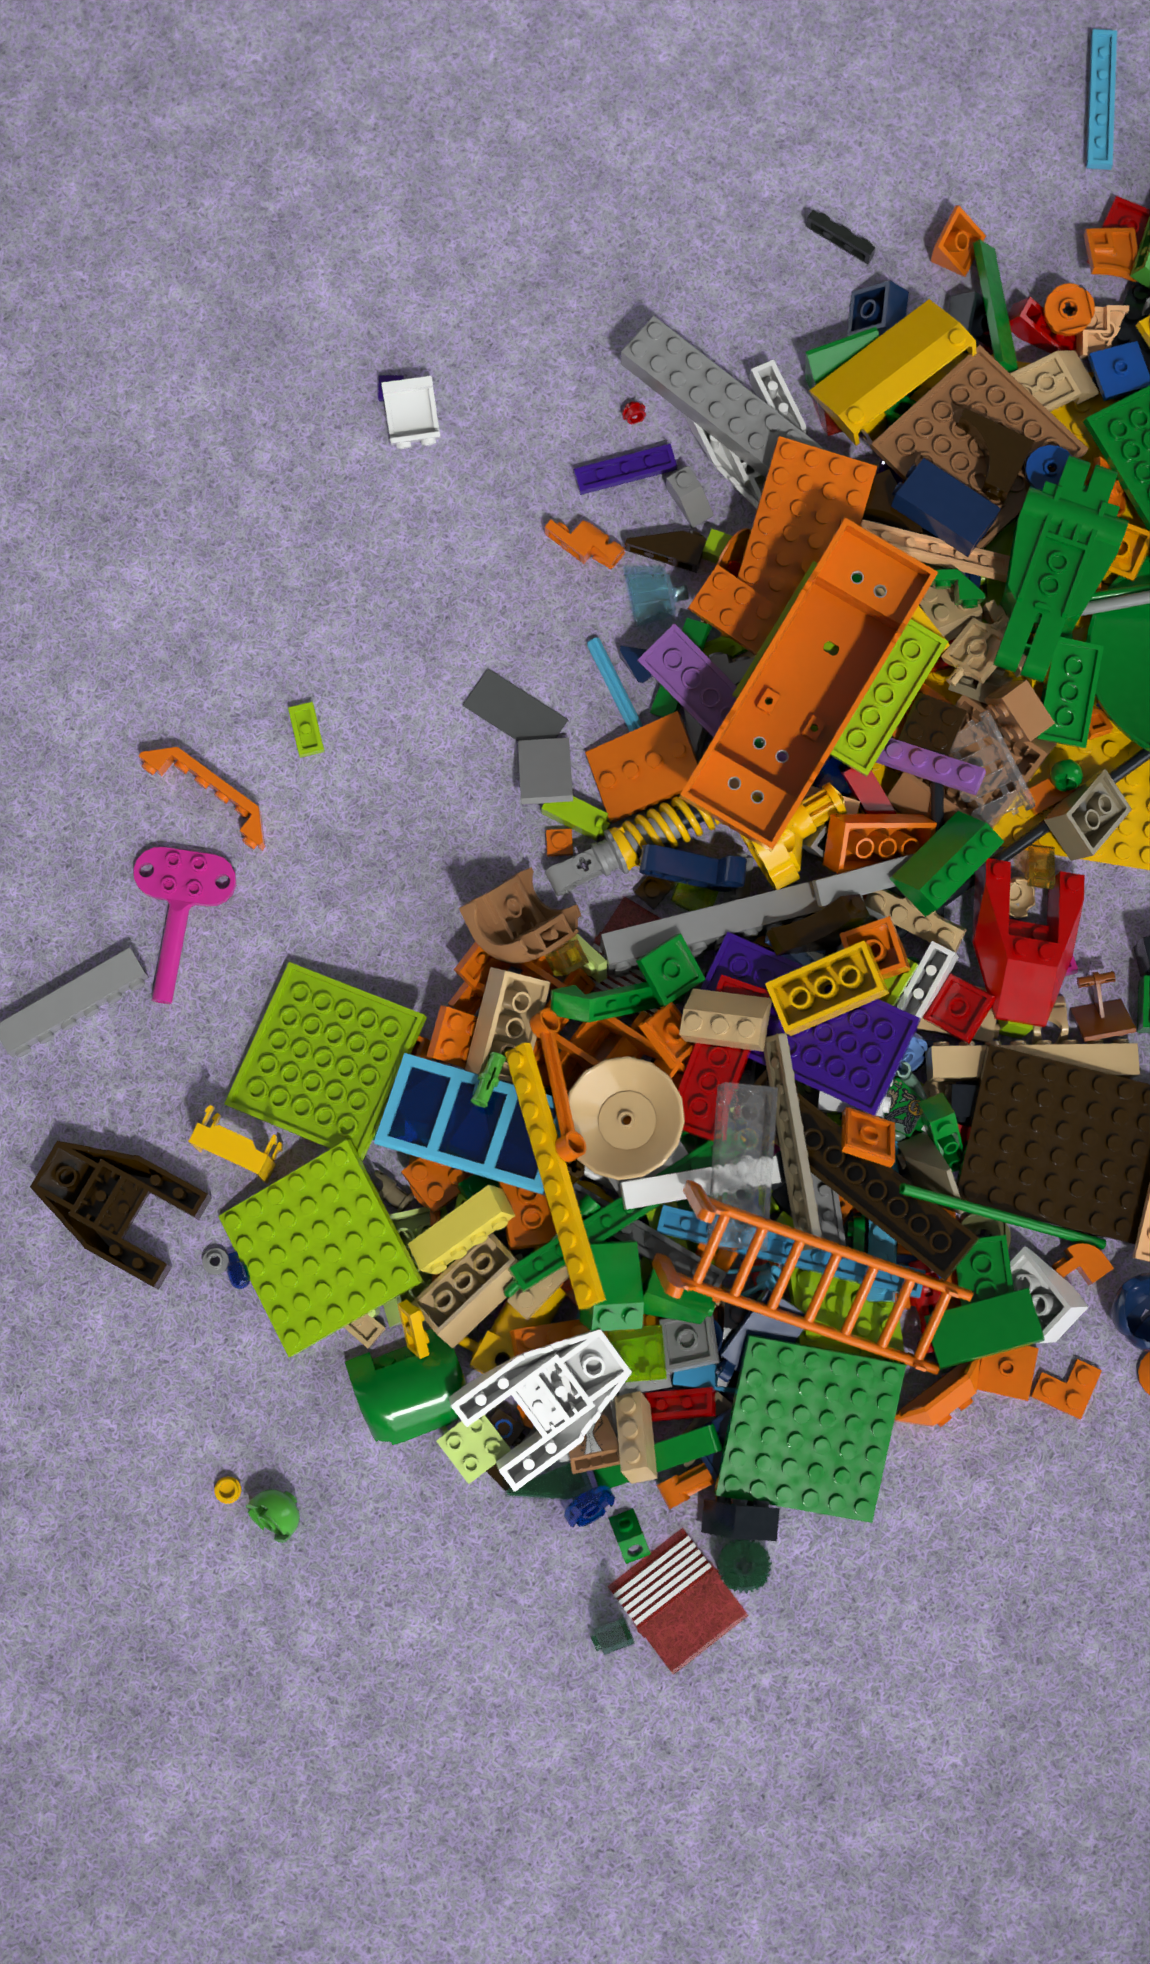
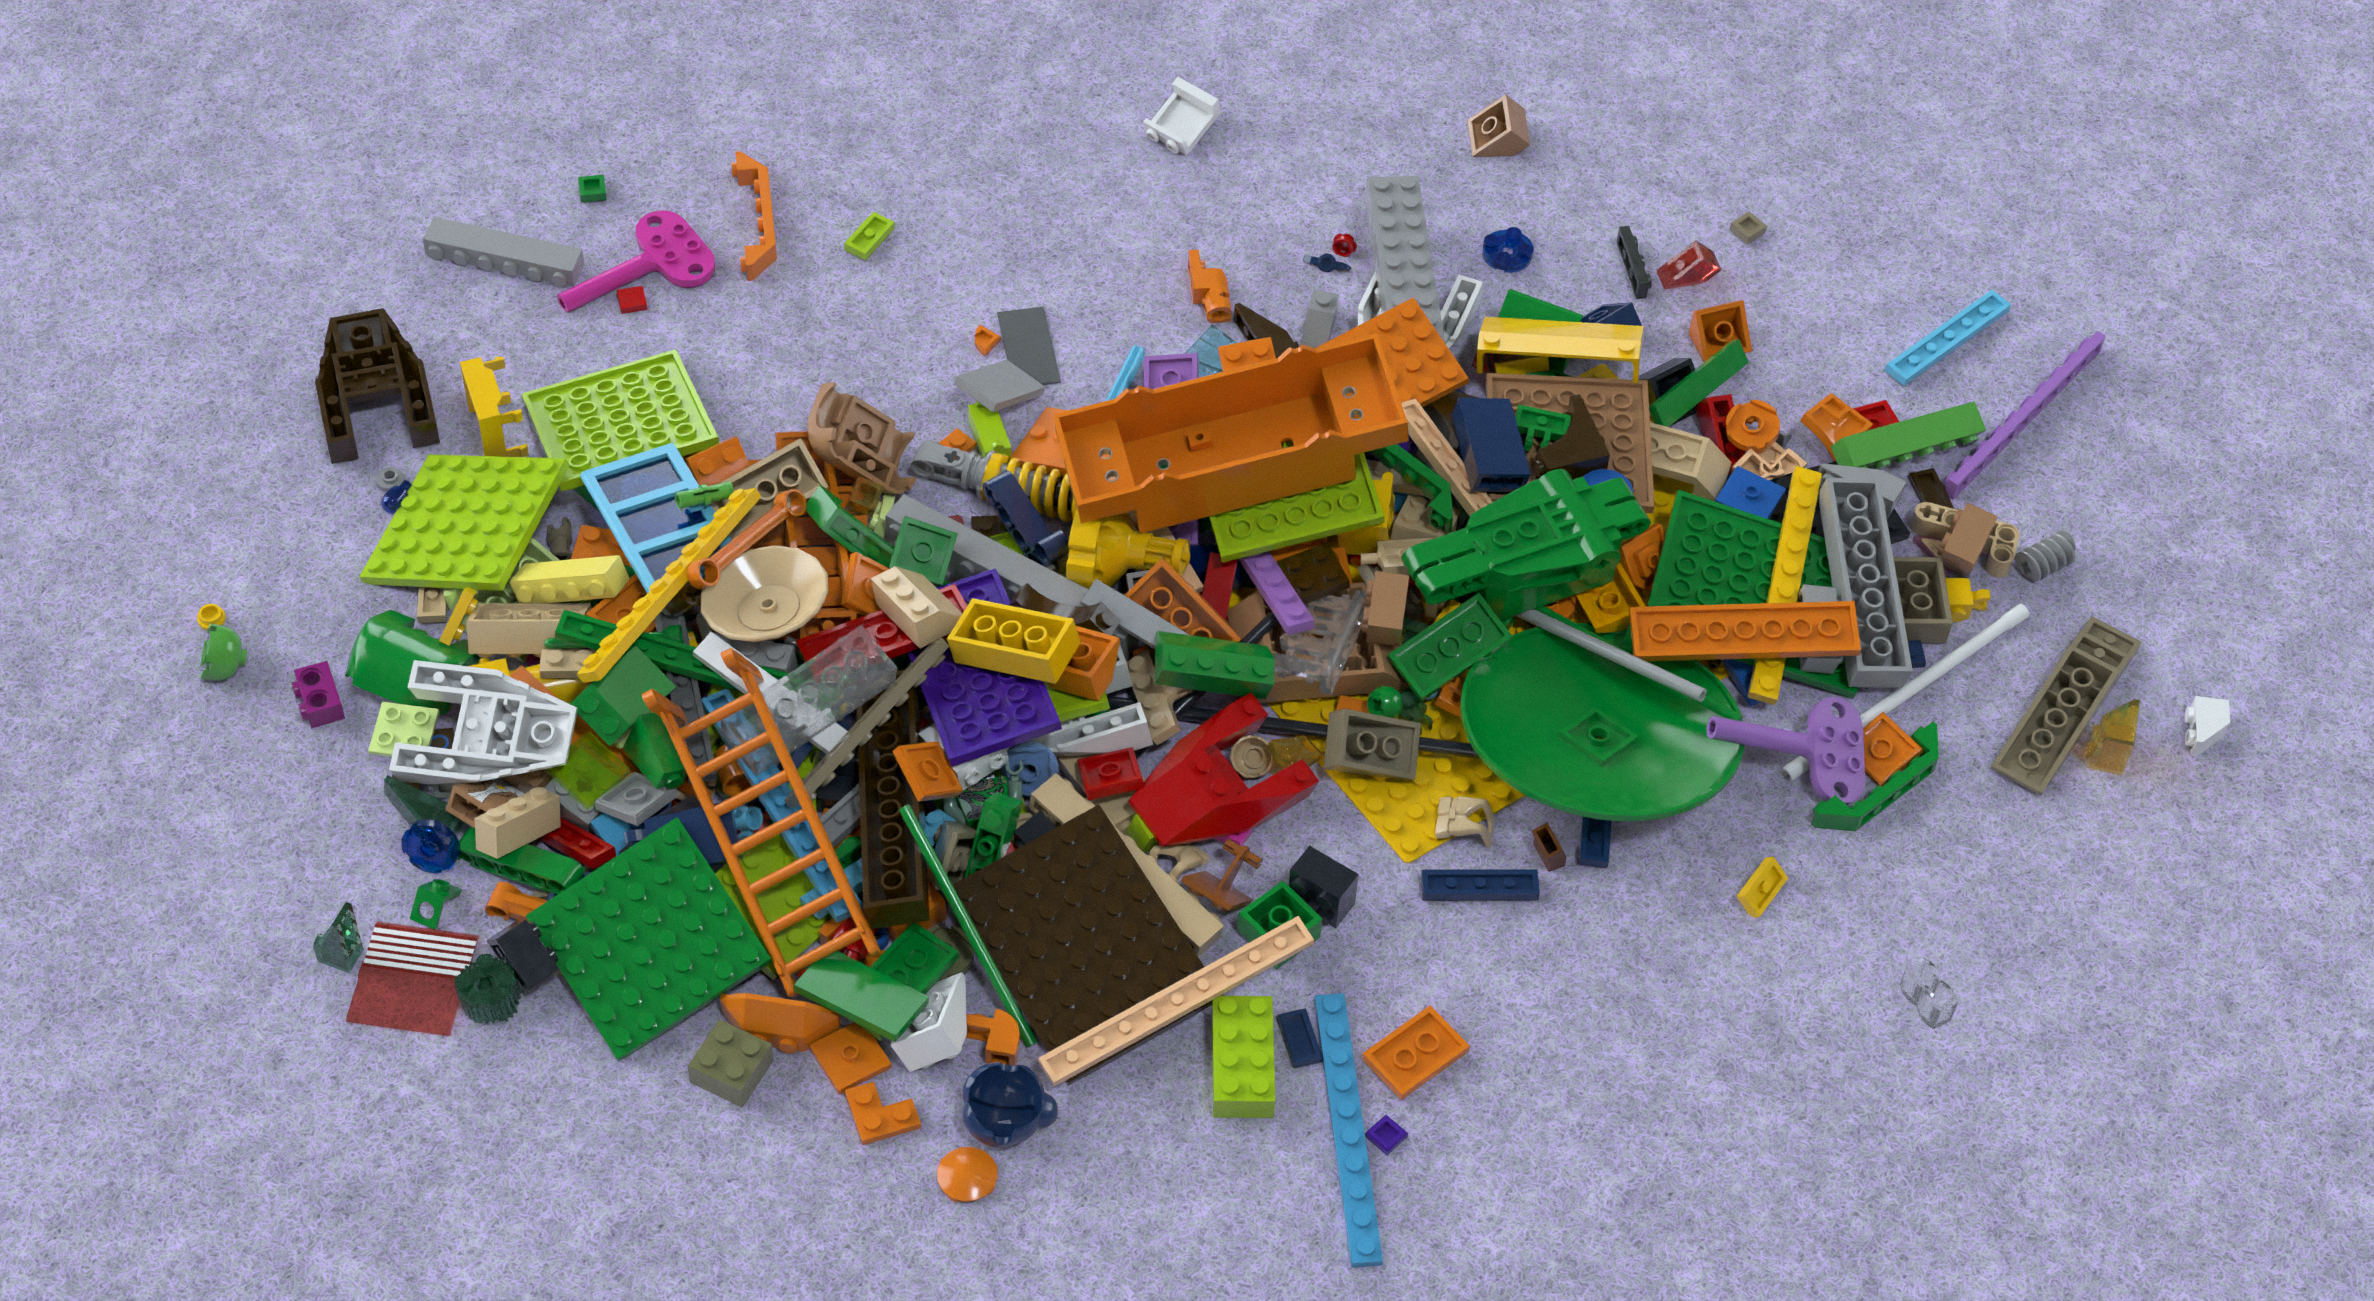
camera: 40 degrees right, 25 degrees down
(66, 884) = (592, 188): none -> green plate
(203, 948) = (632, 299): none -> red tile
(377, 1466) = (319, 694): none -> magenta brick
(481, 736) = (985, 340): none -> orange tile
(625, 469) = (1292, 269): dark purple plate -> none
(633, 206) = (1499, 129): none -> medium nougat slope
(637, 439) = (1326, 262): none -> dark blue piece
(745, 293) = (1512, 239): none -> clear blue plate
(881, 205) = (1689, 267): none -> clear red slope
(883, 129) = (1748, 227): none -> dark tan plate
(948, 1454) = (730, 1063): none -> olive brick
(958, 453) = (1541, 424): none -> green hinge
(1066, 752) = (1414, 709): none -> clear green plate

